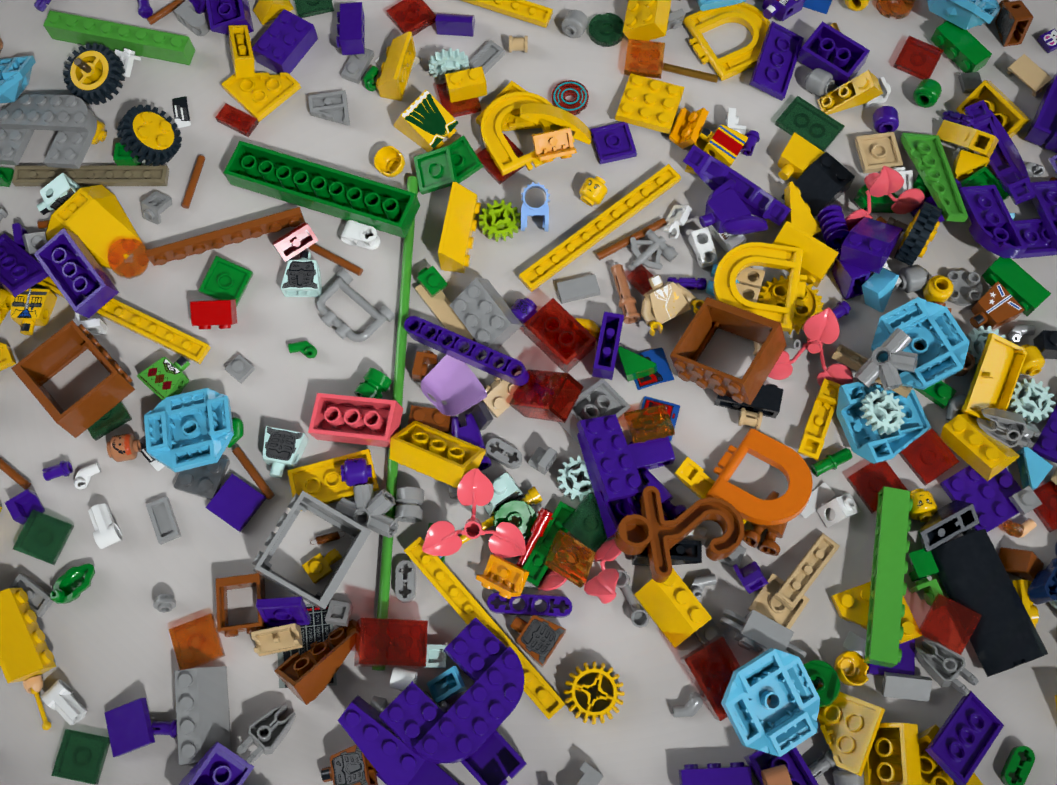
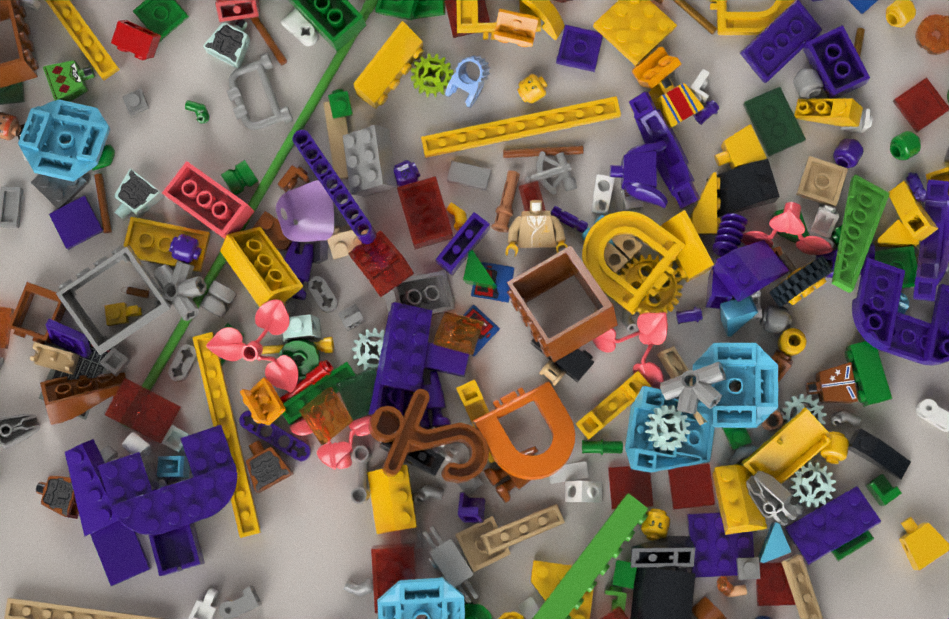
camera: 30 degrees right, 10 degrees up
(579, 687) = (281, 528): yellow gear -> none
(676, 217) = (593, 153): white plate -> none
(966, 287) = (820, 351): light grey dish -> none

